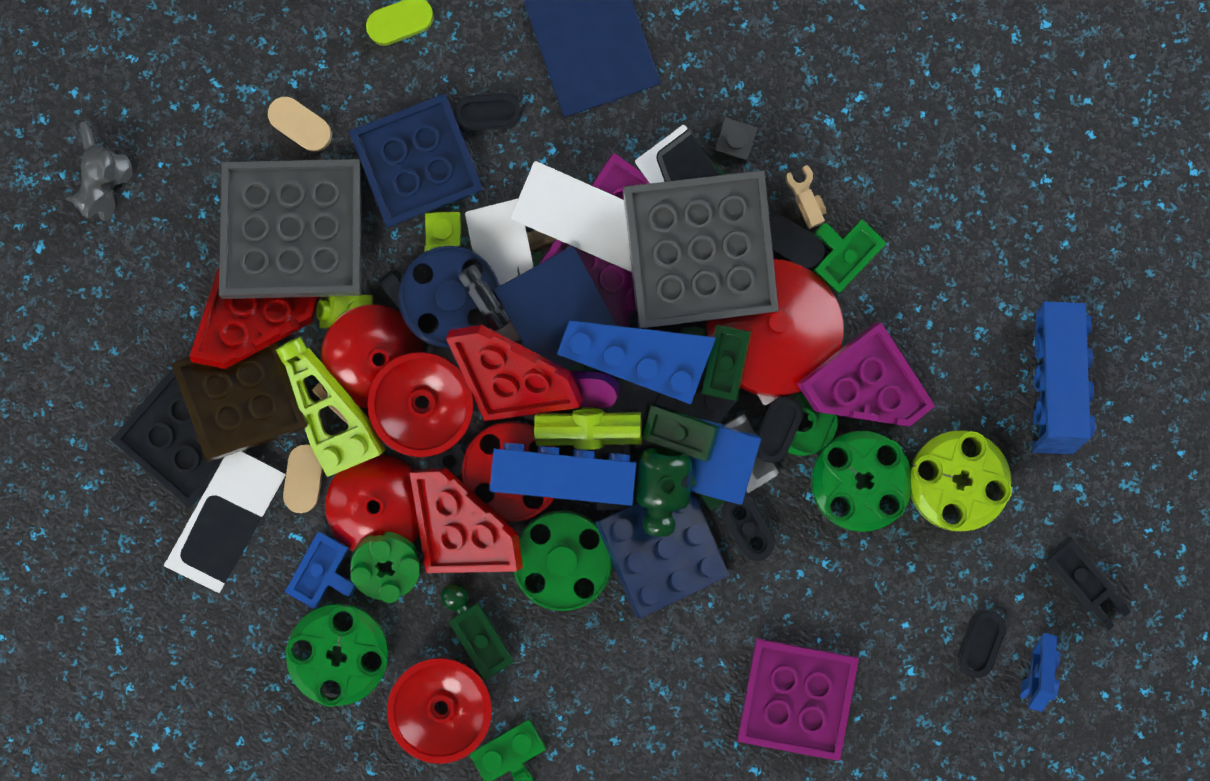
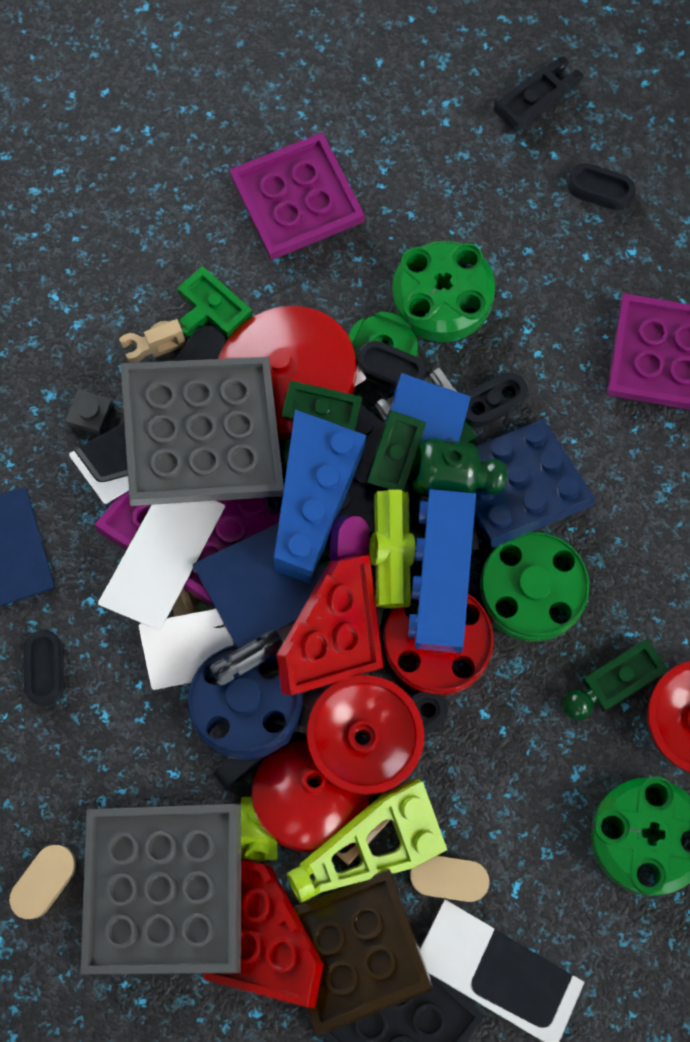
camera: 90 degrees left, 15 degrees down
(319, 571) = (554, 857): blue plate -> none
(377, 479) = (475, 823): red dish -> none
(385, 585) = (567, 778): green plate -> none
(416, 161) = (92, 746): dark blue plate -> none
(442, 229) = (171, 718): lime bracket -> none
(459, 528) = (502, 694): plate -> none
(868, 382) = (342, 280): magenta plate -> none
(960, 481) = (441, 199): lime piece -> none
(967, 335) = (296, 196): none -> magenta plate
(1041, 682) = (631, 124): blue plate -> none
(1063, 378) = (342, 108): blue wedge -> none

